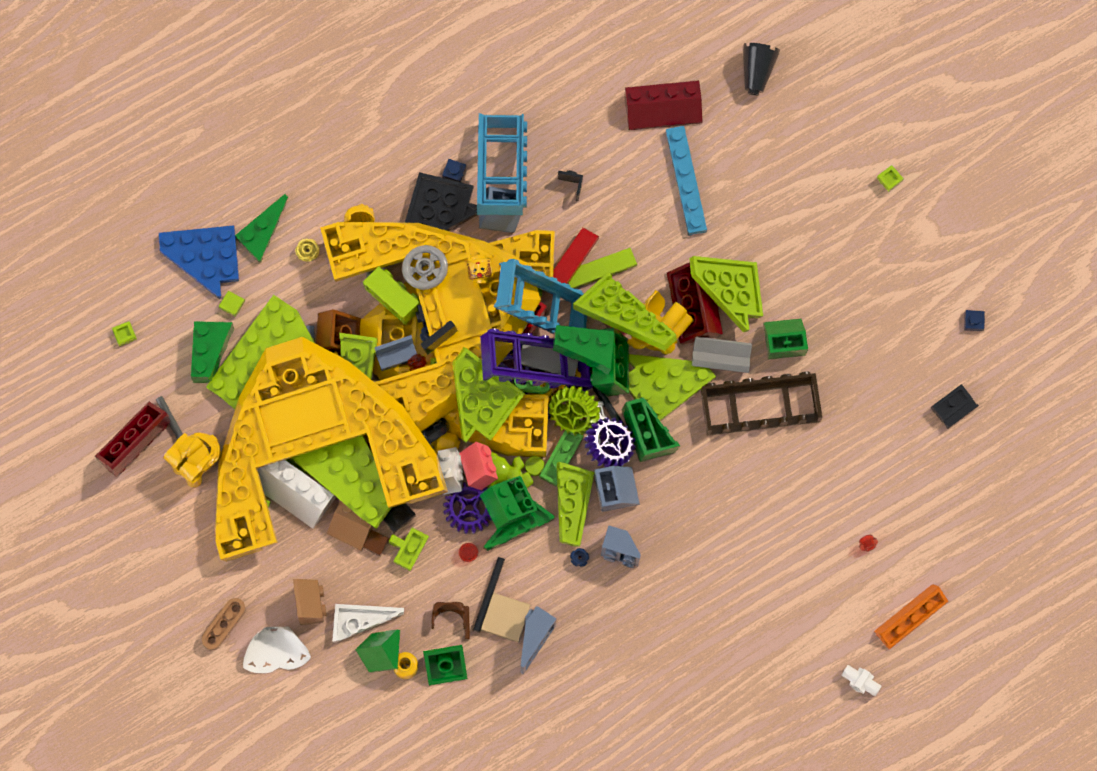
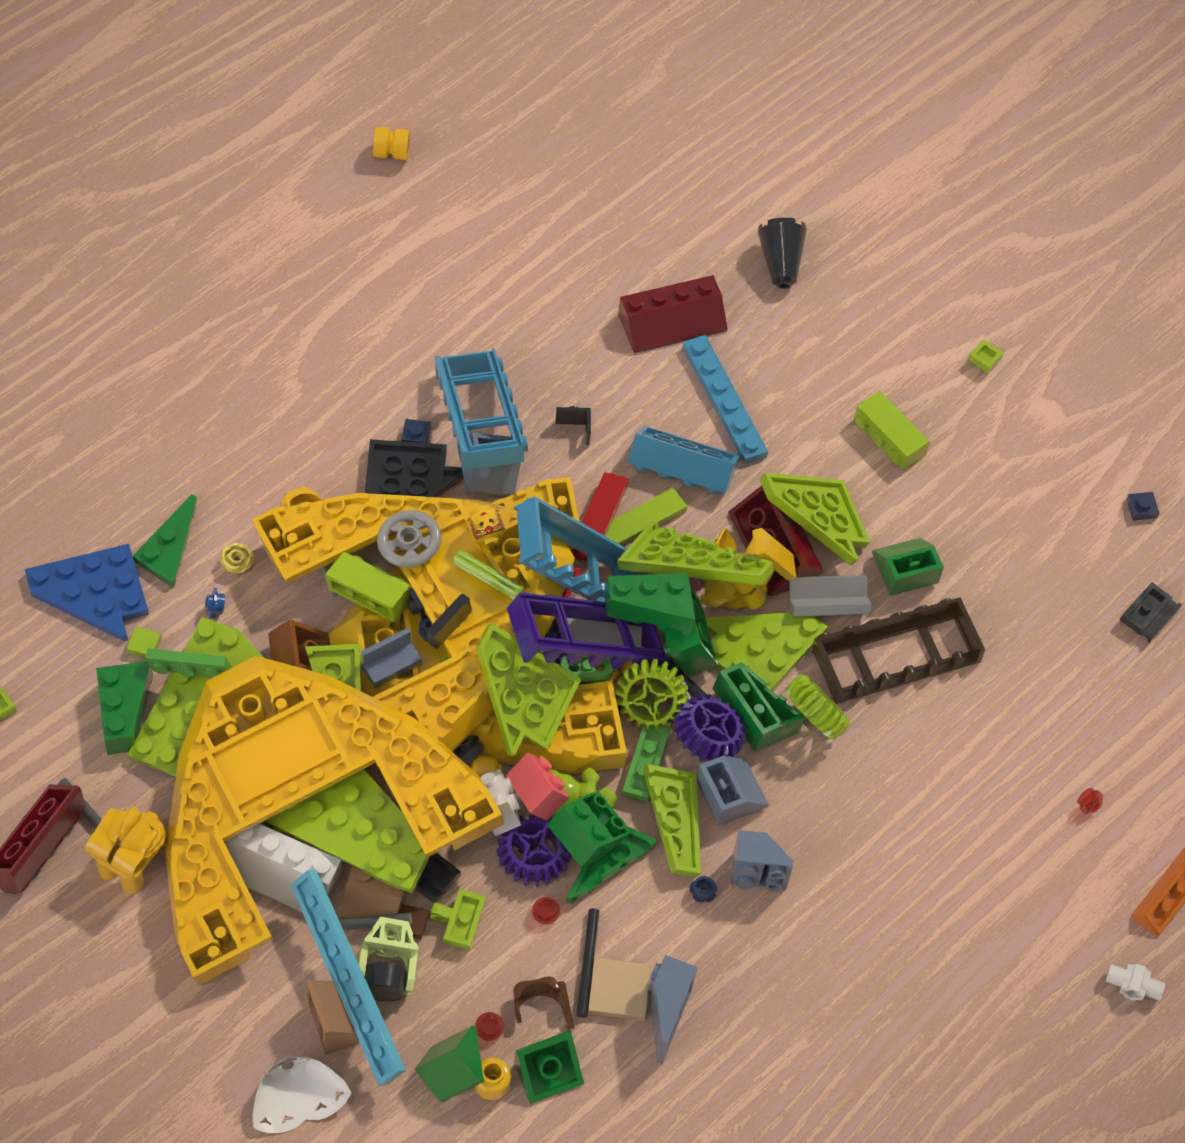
camera: 15 degrees left, 15 degrees down
(225, 615) = (216, 1060): medium nougat plate -> none
(255, 331) = (186, 663): none -> bright green plate
(285, 282) = (215, 603): none -> blue plate
(321, 579) = (348, 978): none -> medium azure plate
(346, 539) = (369, 922): none -> dark grey bar
(347, 583) = (392, 941): none -> yellowish green piece
(356, 618) = (416, 1025): white wing -> none
(412, 627) = (489, 1026): none -> clear red plate
(416, 362) = (421, 663): clear red plate -> none
(473, 306) = (487, 574): none -> lime axle
(534, 465) = (613, 779): lime tile -> none
(643, 225) = (683, 459): none -> dark azure slope
(683, 322) = (771, 550): none -> yellow tile
(689, 440) = (817, 706): none -> lime gear
(801, 228) = (891, 430): none -> lime brick

